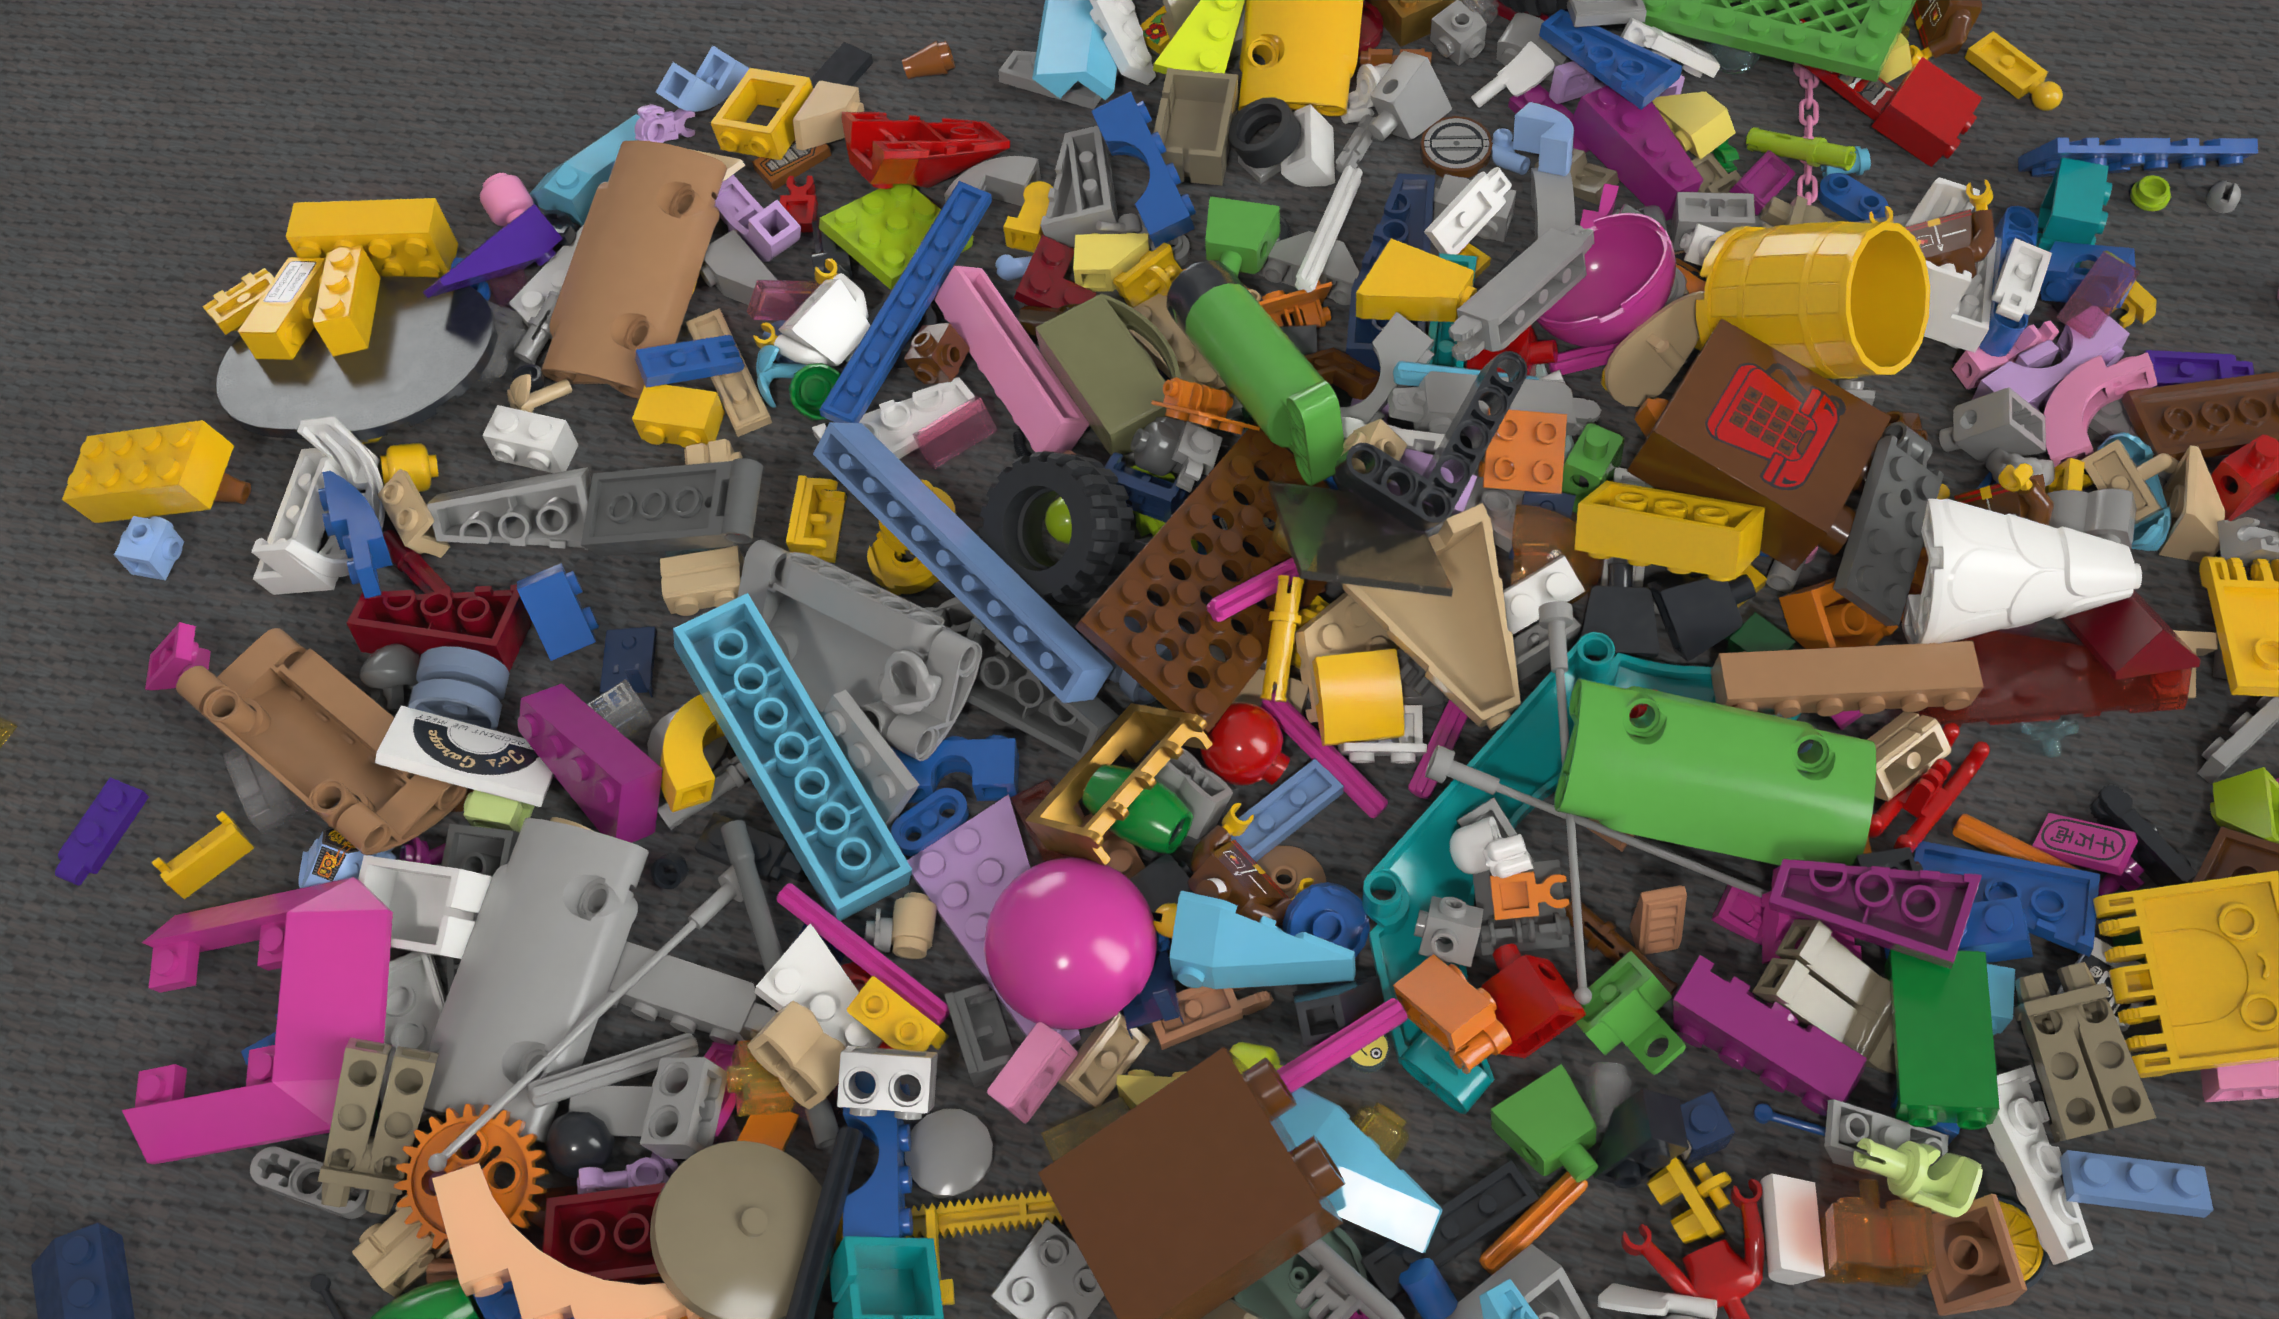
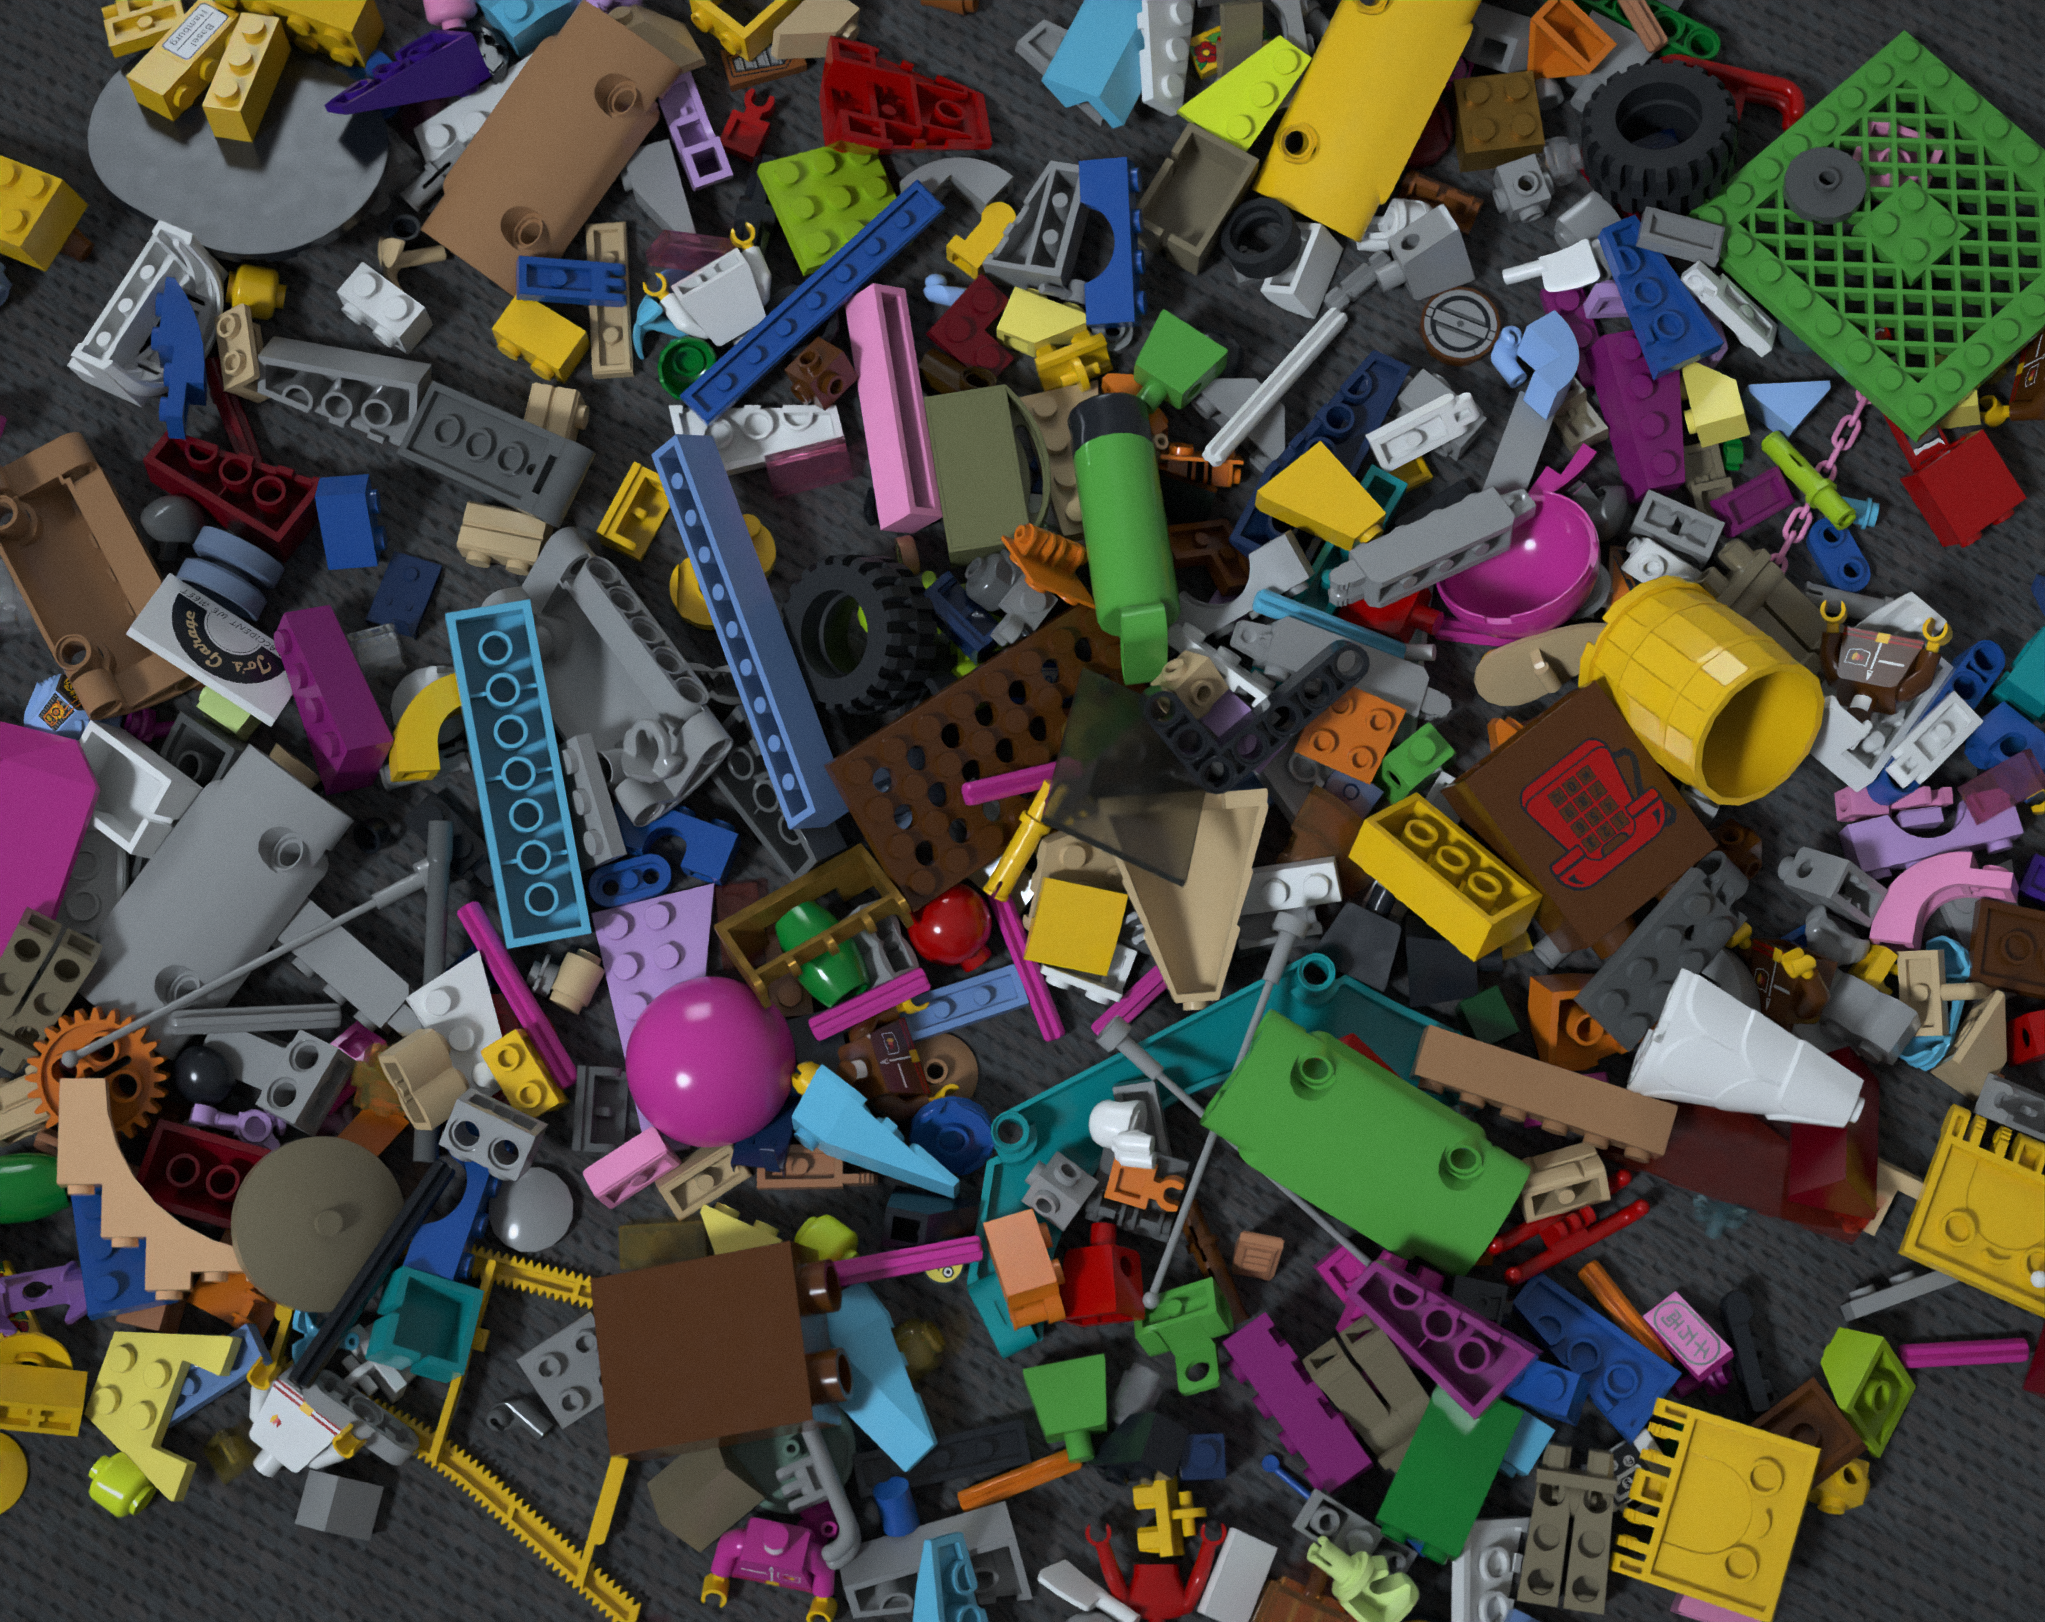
camera: 15 degrees right, 15 degrees up
(1199, 831) = (869, 1003): none -> dark pink axle
(1752, 104) = (1784, 405): none -> light blue slope

